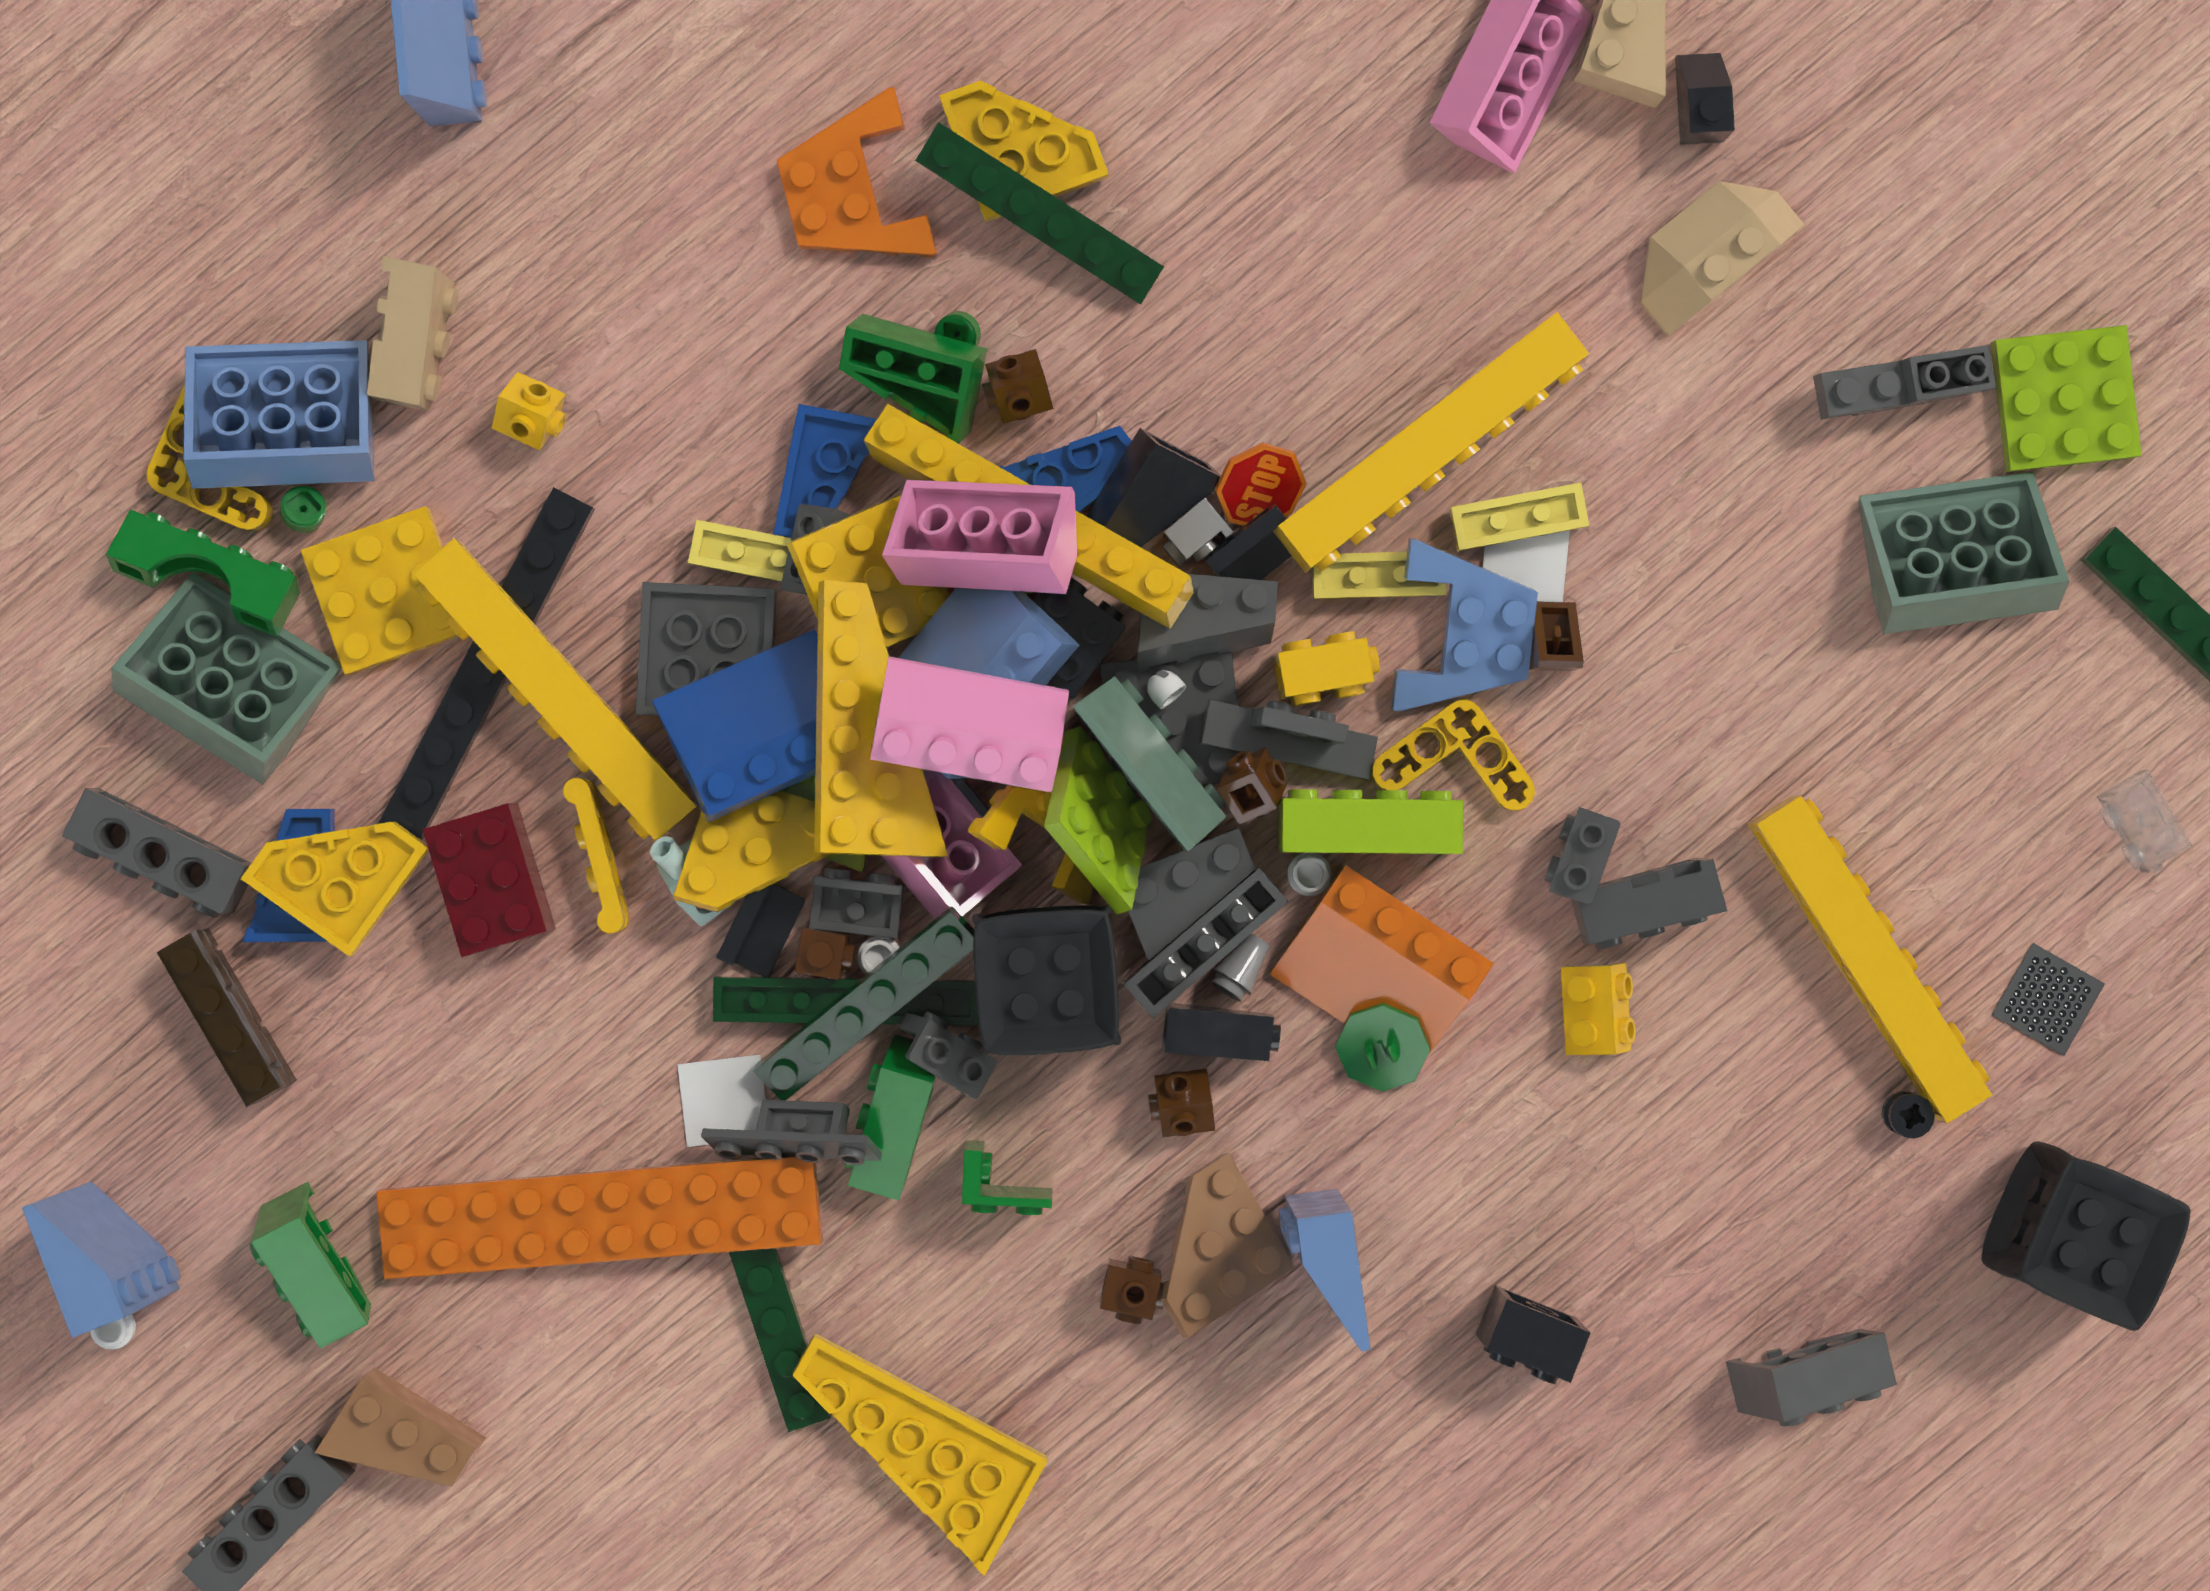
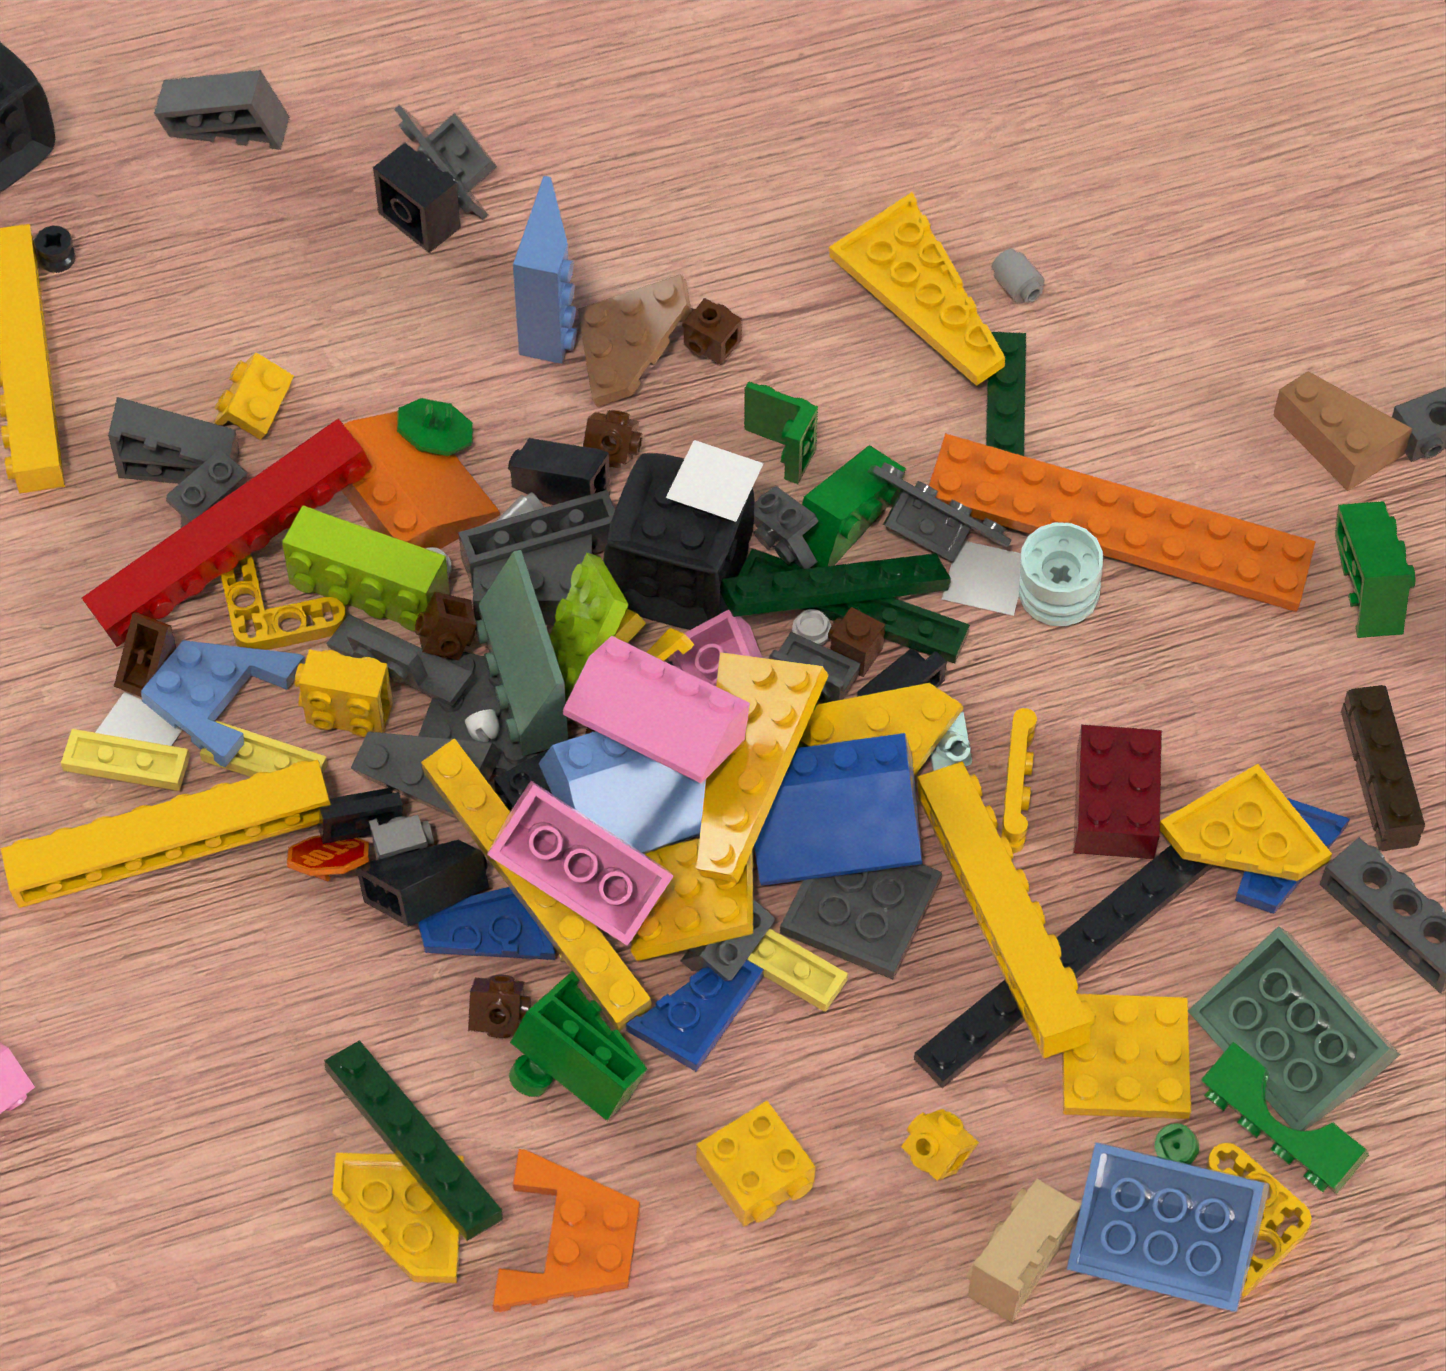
camera: 165 degrees left, 30 degrees down
(612, 1128) = (1060, 574): none -> light aqua wheel
(697, 319) = (756, 1164): none -> yellow brick
(823, 1505) = (1018, 276): none -> light grey brick
(1022, 1034) = (714, 480): none -> white sticker
(1522, 1420) = (455, 151): none -> dark grey bracket
(1532, 809) = (229, 531): none -> red brick

